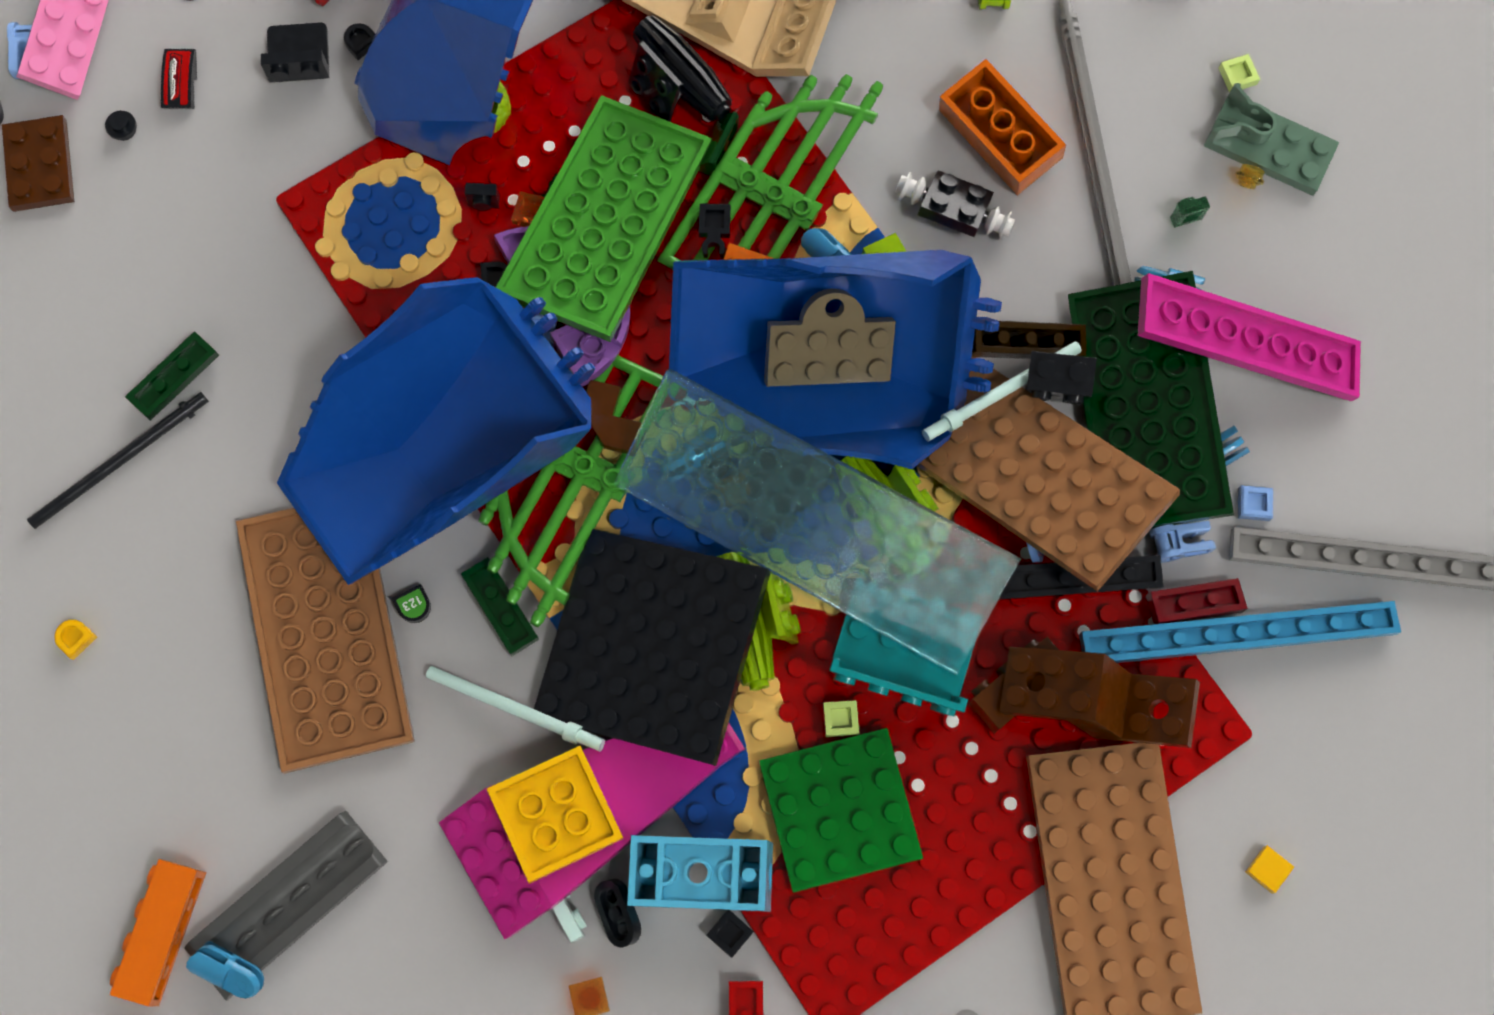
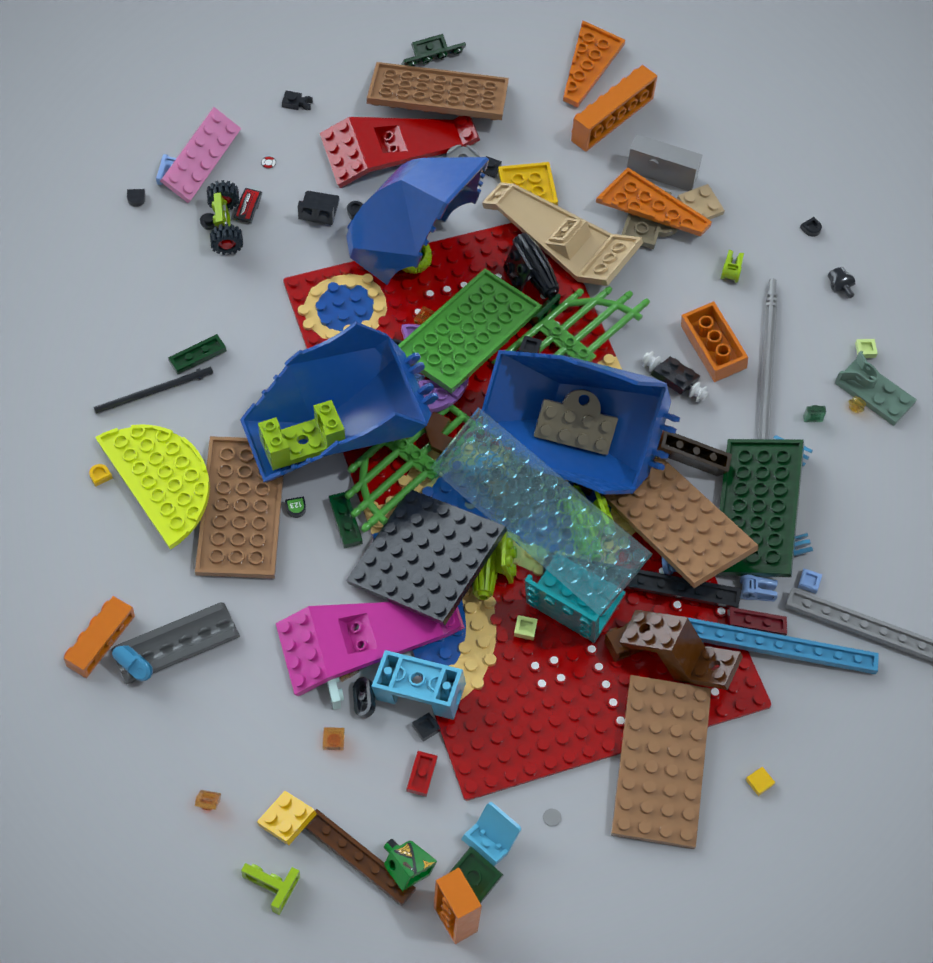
camera: 15 degrees right, 15 degrees down
(37, 163) = (156, 229): reddish brown plate -> none
(127, 82) = (224, 237): none -> black plate
(178, 616) = (162, 475): none -> neon yellow plate
(359, 514) = (283, 446): none -> lime plate
(482, 196) = (401, 303): black plate -> none
(554, 814) = (344, 628): yellow plate -> none
(569, 731) = (365, 591): light aqua bar -> none
(840, 810) = (511, 677): green plate -> none
(954, 418) = (637, 479): light aqua bar -> none
(1061, 376) = (707, 475): black bracket -> none
(1249, 337) = (828, 484): dark pink plate -> none

